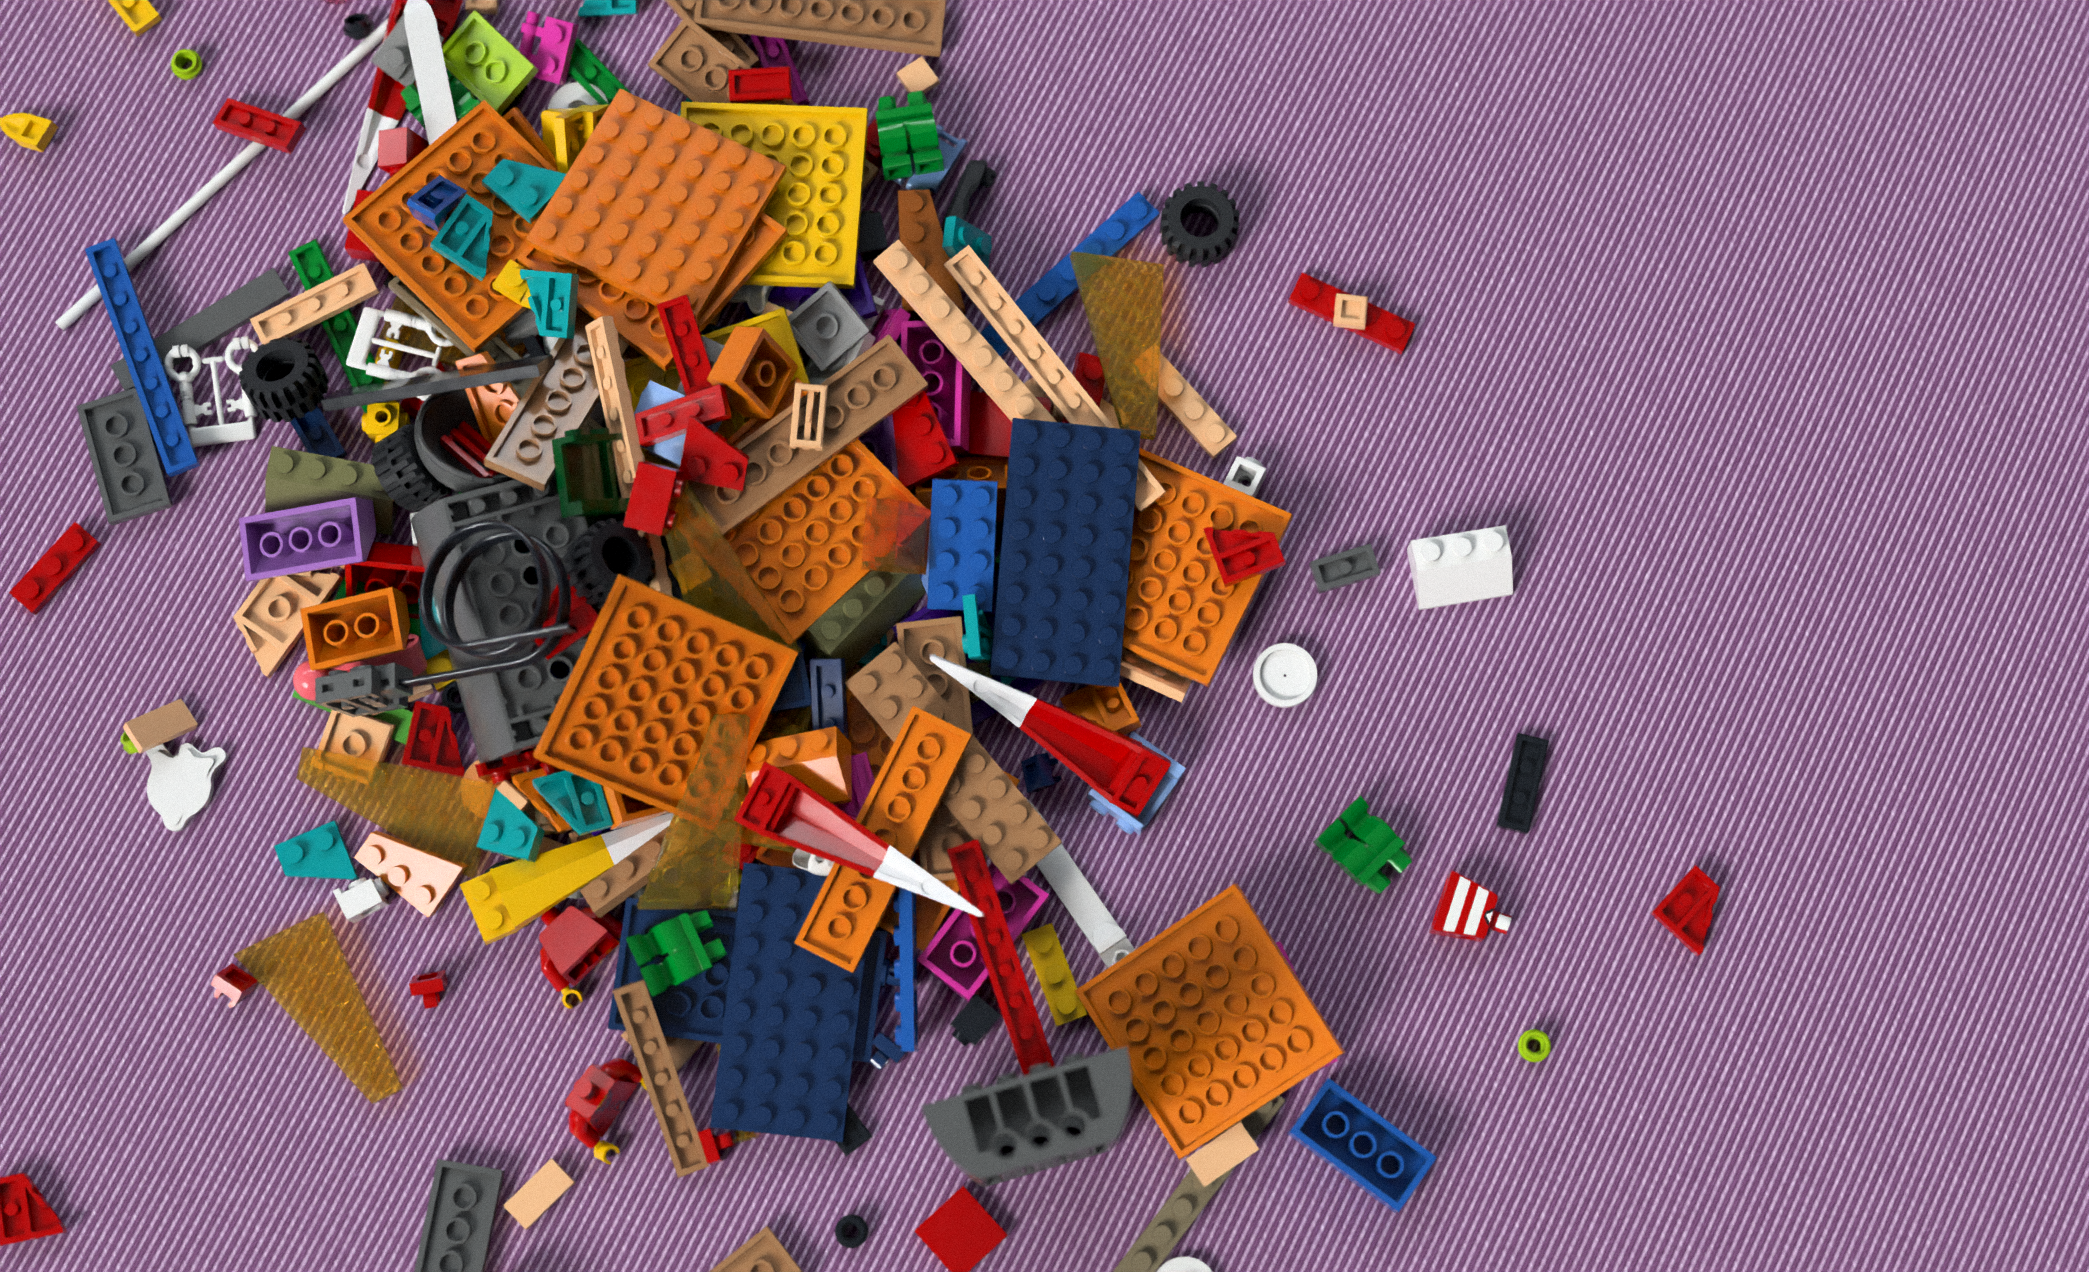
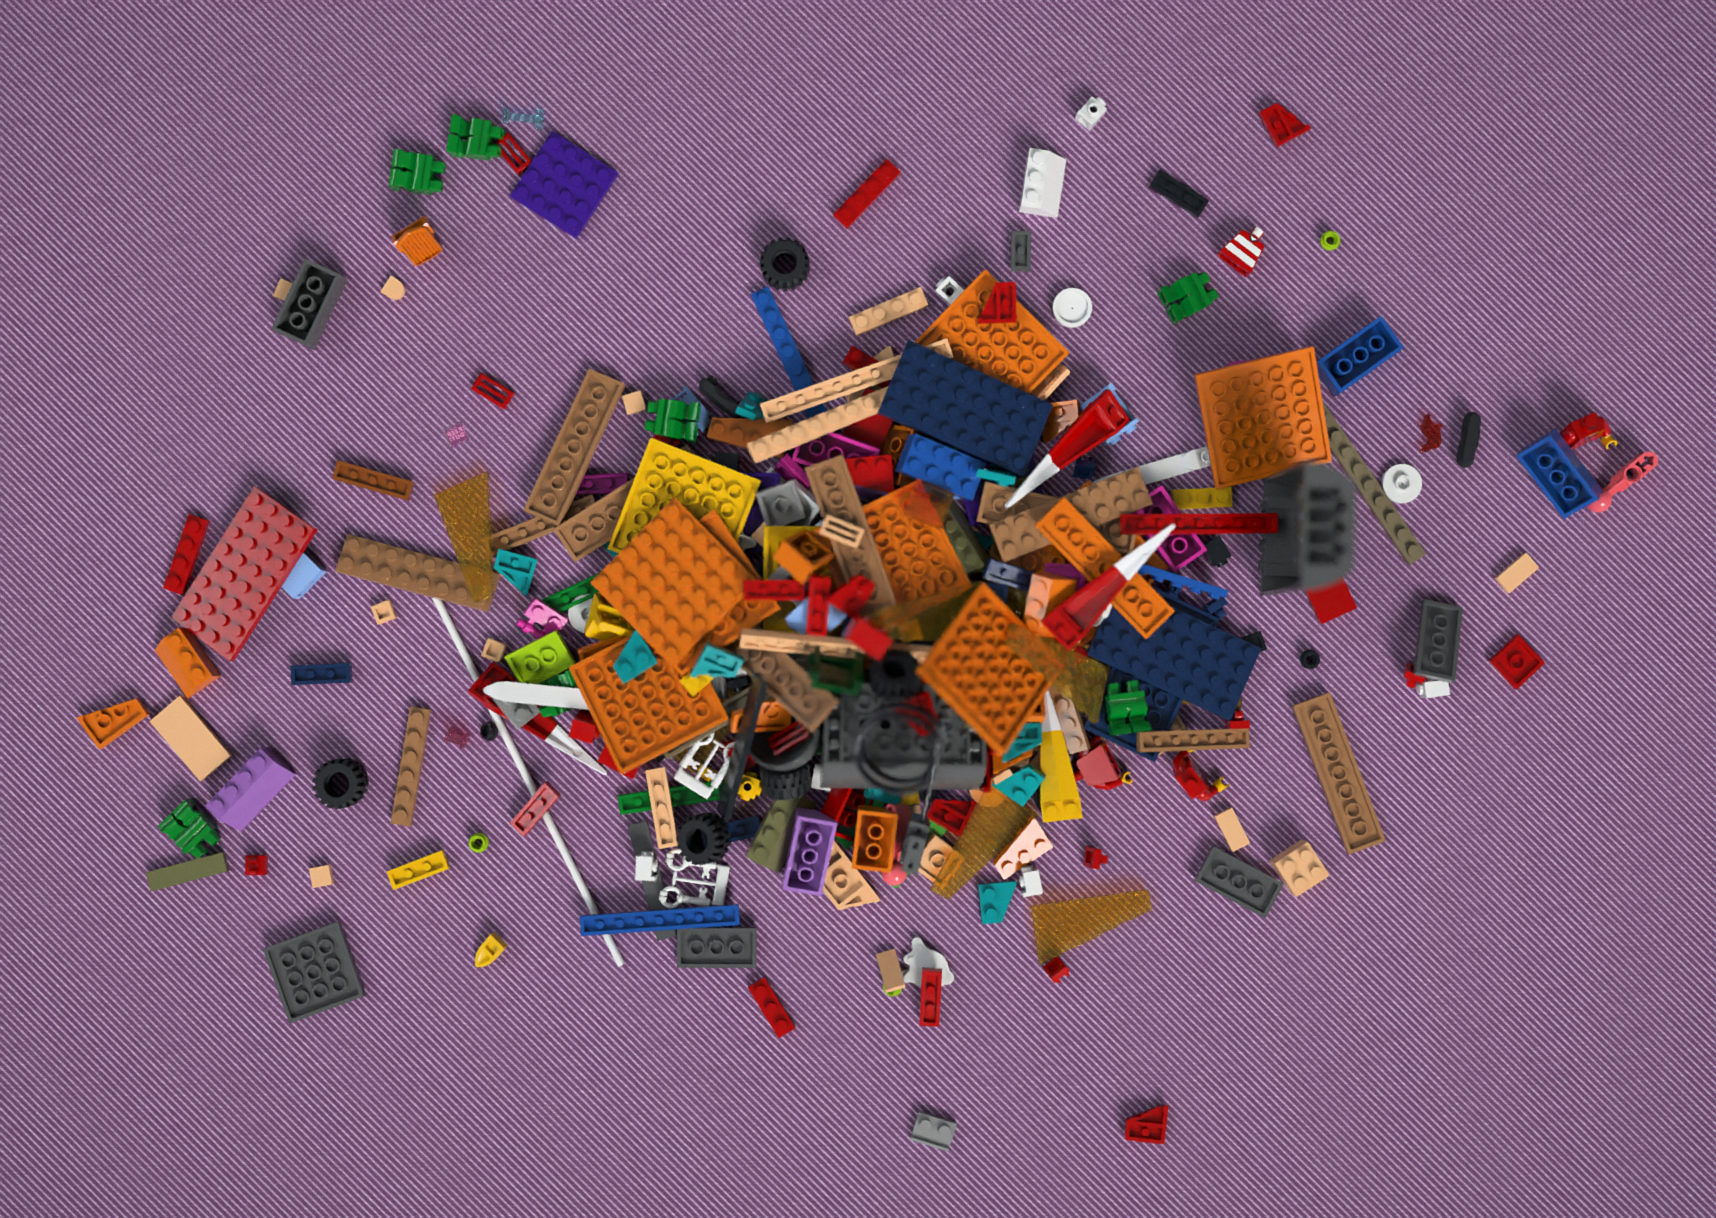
camera: 70 degrees left, 10 degrees up
(135, 800) = (930, 997): none -> red plate
(217, 310) = (646, 866): none -> white brick
(435, 201) = (629, 713): blue slope -> none
(466, 237) = (657, 702): teal wing -> none
(760, 84) = (612, 497): red tile -> none
(1125, 321) = (829, 327): clear yellow wing -> none
(1222, 1154) = (1338, 436): light nougat tile -> none
(1350, 311) = (868, 193): light nougat tile -> none
(1587, 609) = (1088, 118): none -> white brick

